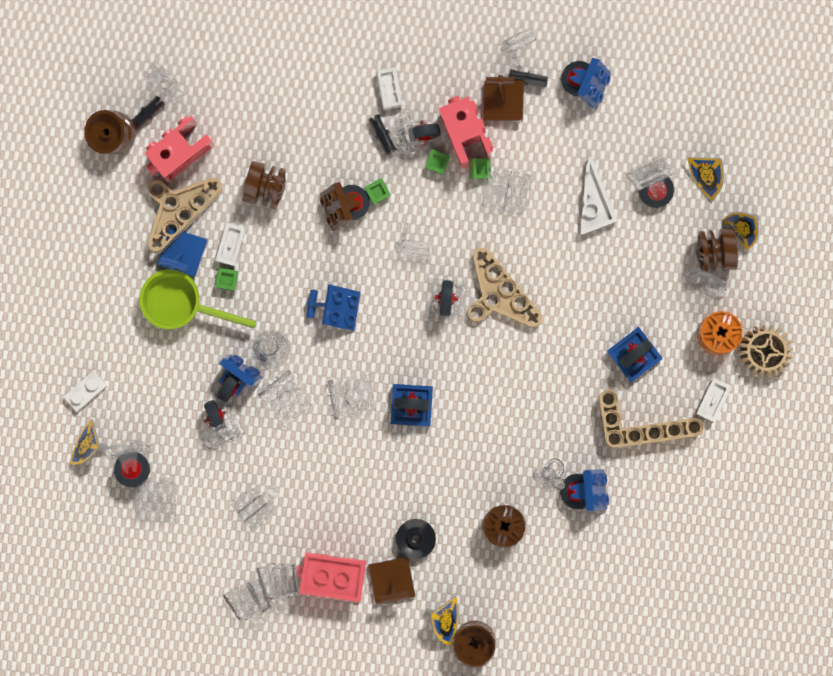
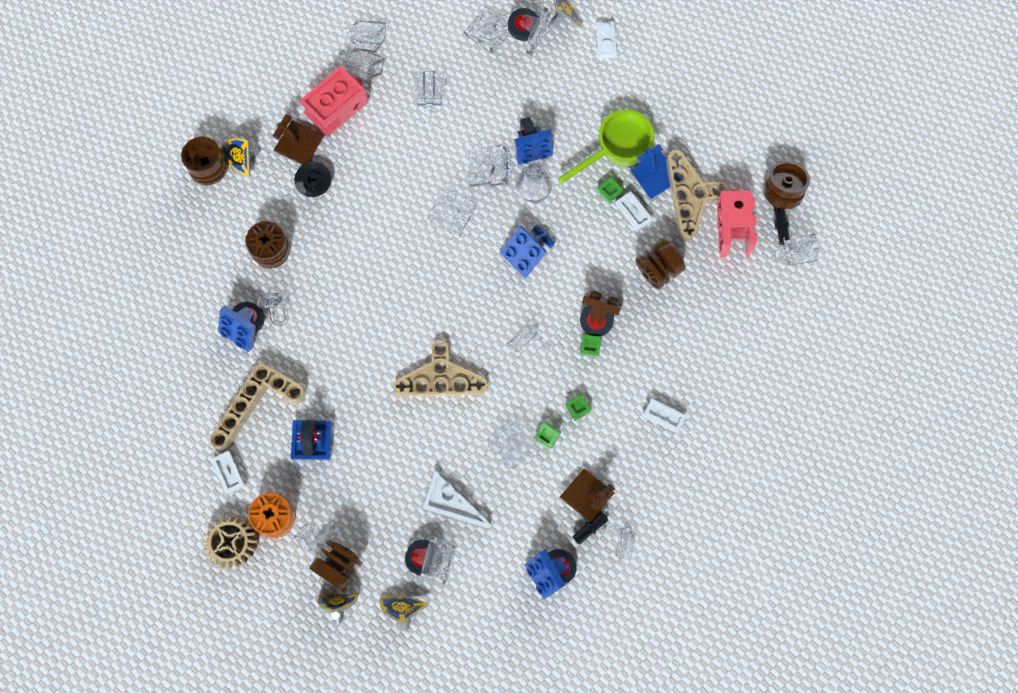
camera: 125 degrees right, 10 degrees down
(221, 431) = (506, 104): clear plate -> none
(382, 134) = (632, 383): black pin -> none
(411, 405) = (410, 249): blue plate -> none
(413, 134) = (609, 409): clear plate -> none
(446, 299) = (467, 333): clear plate -> none
(464, 127) = (591, 443): coral torso -> none

